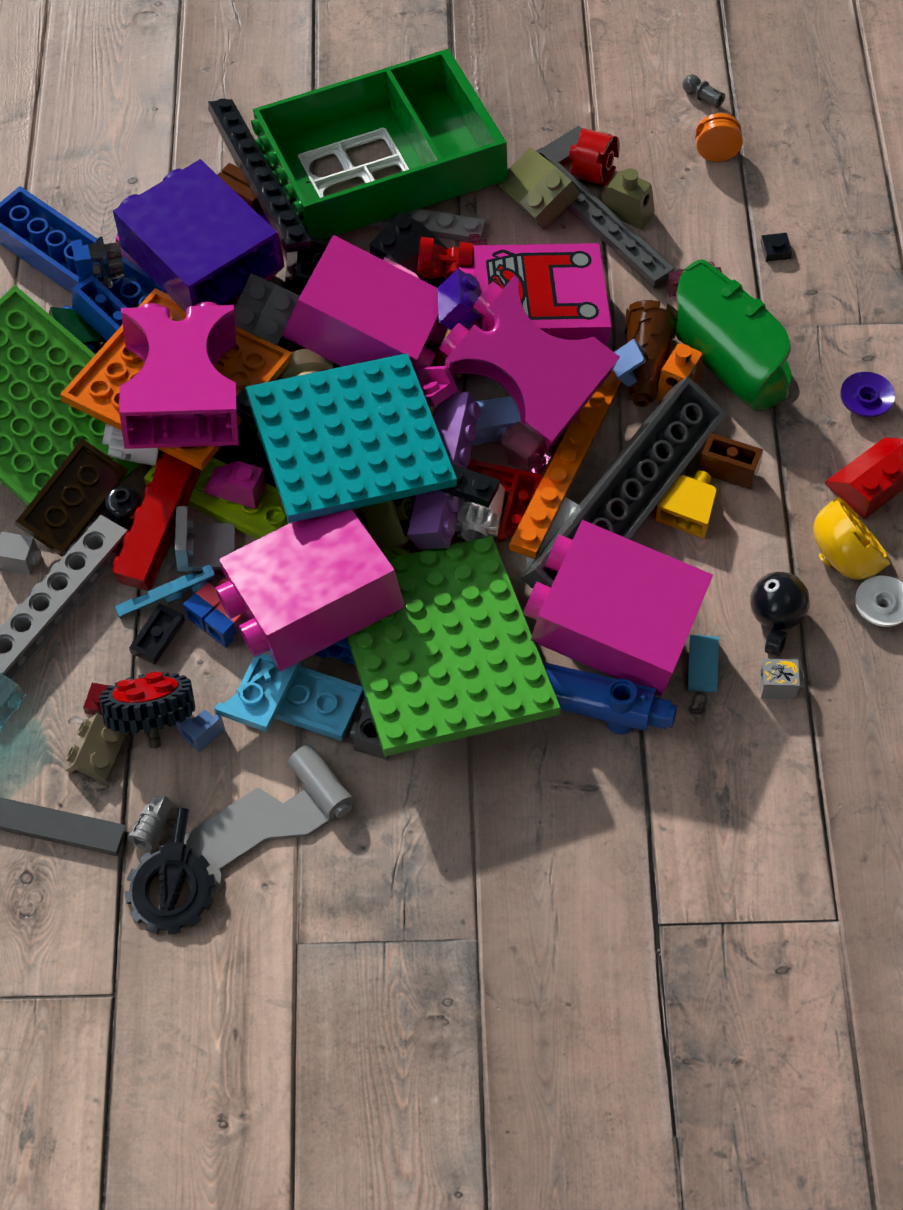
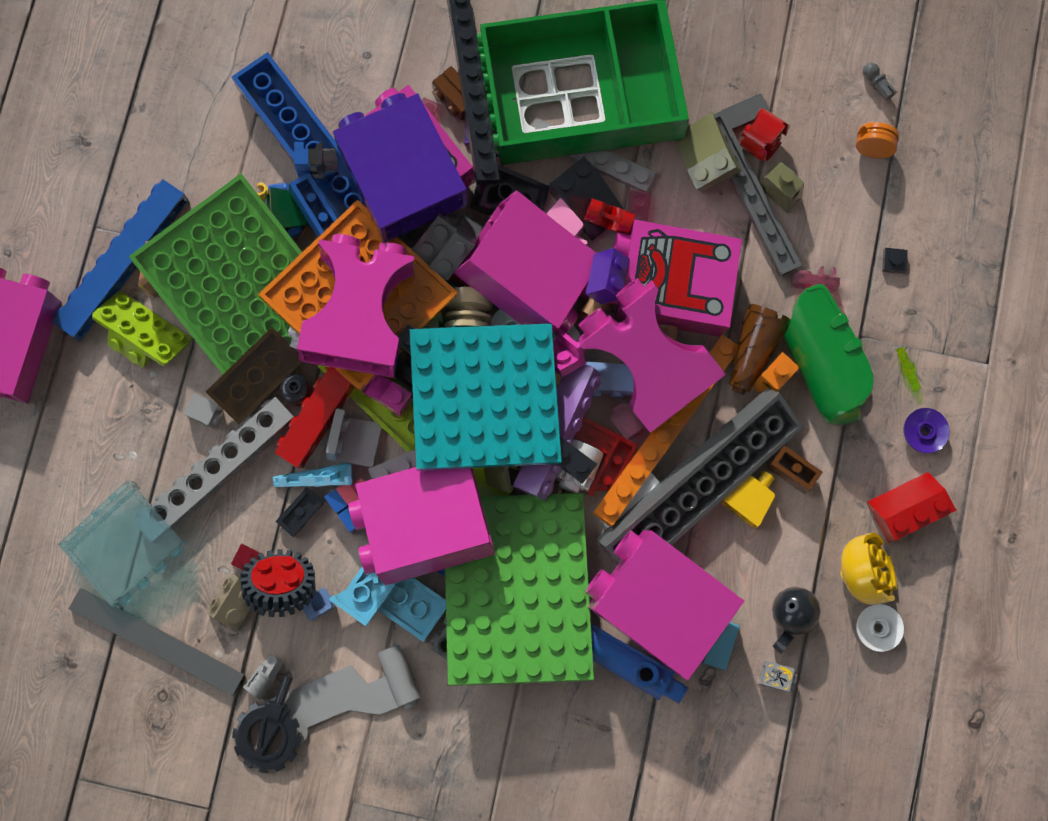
camera: 10 degrees right, 20 degrees up
(630, 358) = (734, 362): medium blue panel -> none
(827, 342) = (908, 368): none -> clear neon green bar

